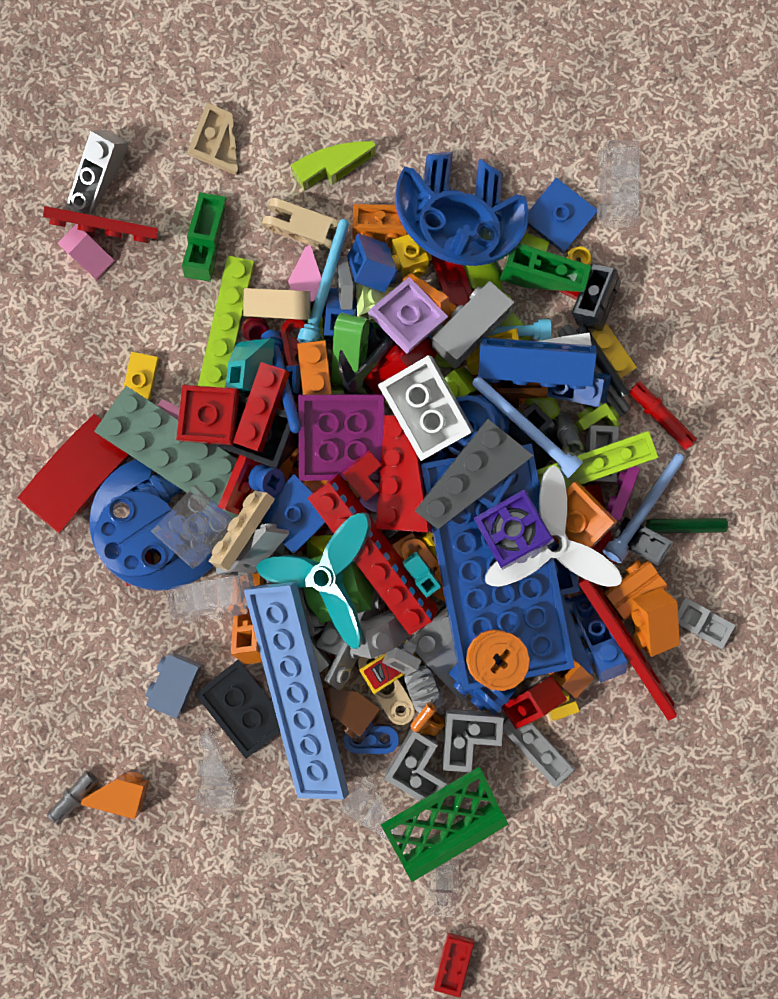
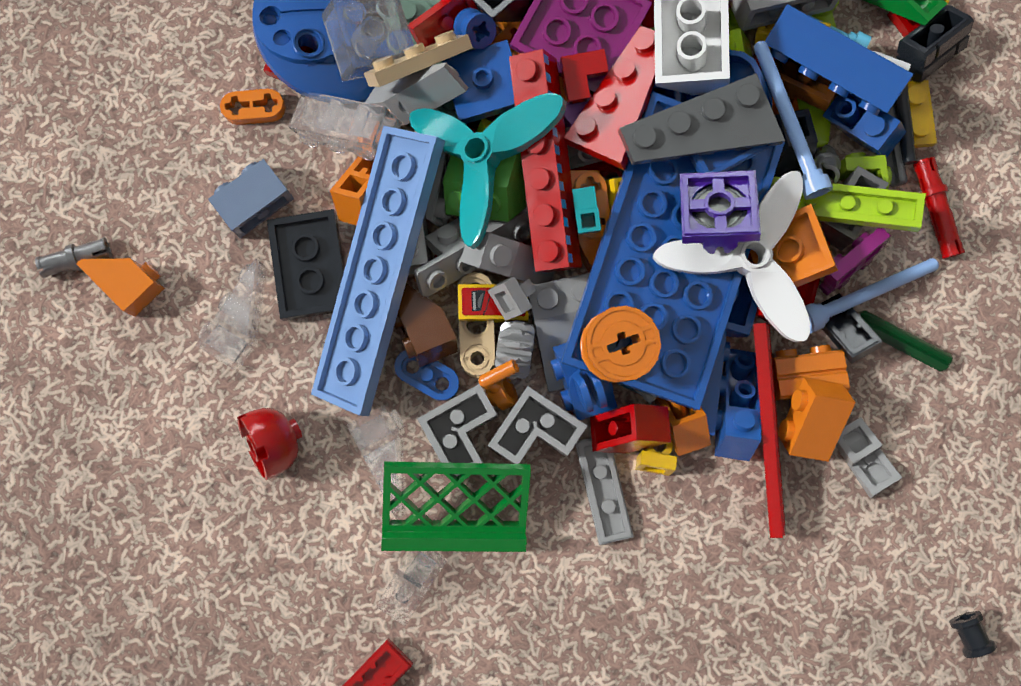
camera: 30 degrees right, 5 degrees down
(130, 609) = (251, 99): none -> orange beam
(290, 847) = (270, 440): none -> red cylinder

